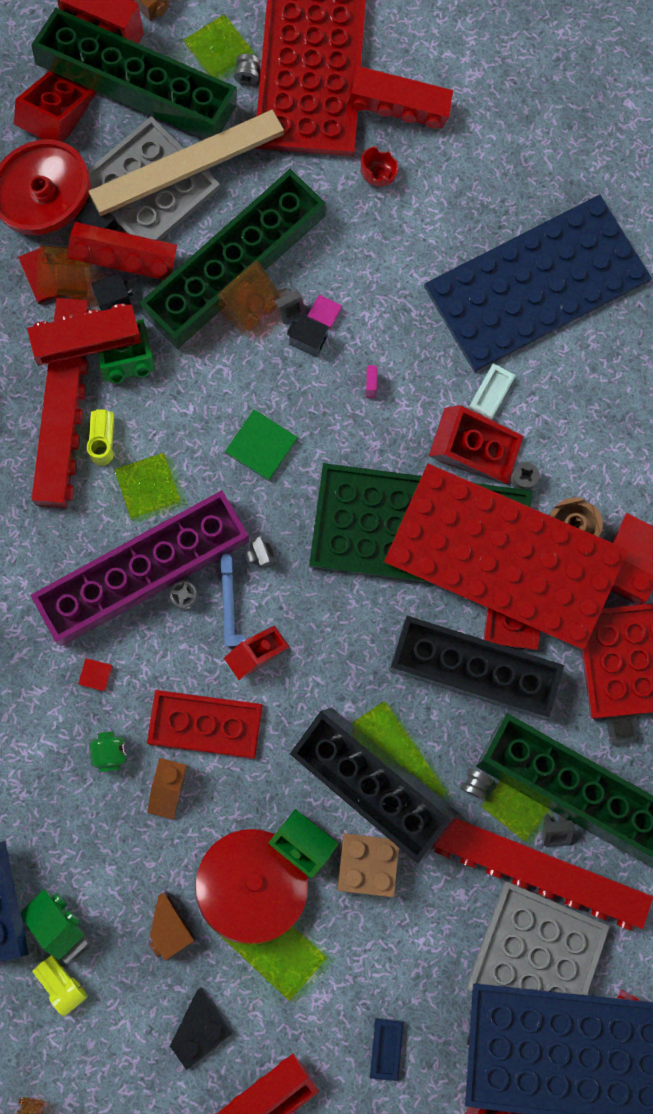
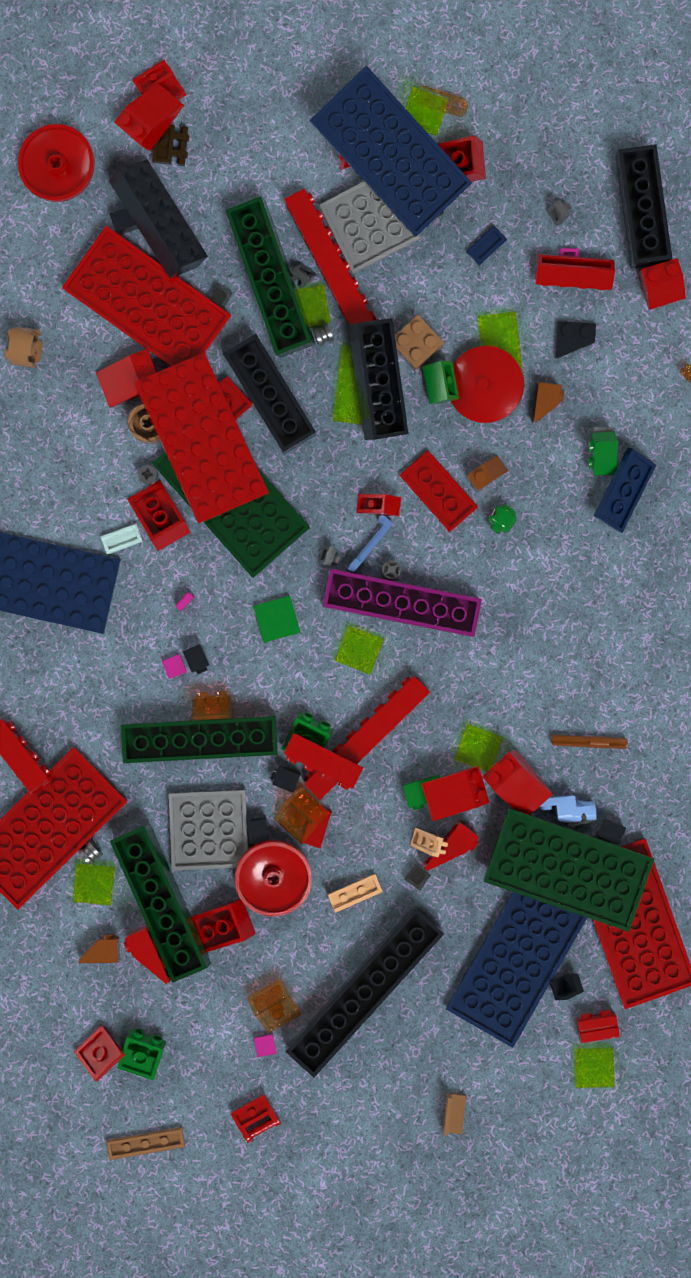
camera: 130 degrees left, 10 degrees up
(62, 989) = (625, 419): neon yellow piece -> none
(95, 674) = (474, 568): red tile -> none
(101, 436) = (360, 700): neon yellow piece -> none
(121, 251) = (260, 795): red brick -> none
(186, 162) = (177, 820): tan tile -> none
(289, 305) = (192, 686): flat silver tile -> none
(378, 167) = (67, 725): red hair -> none

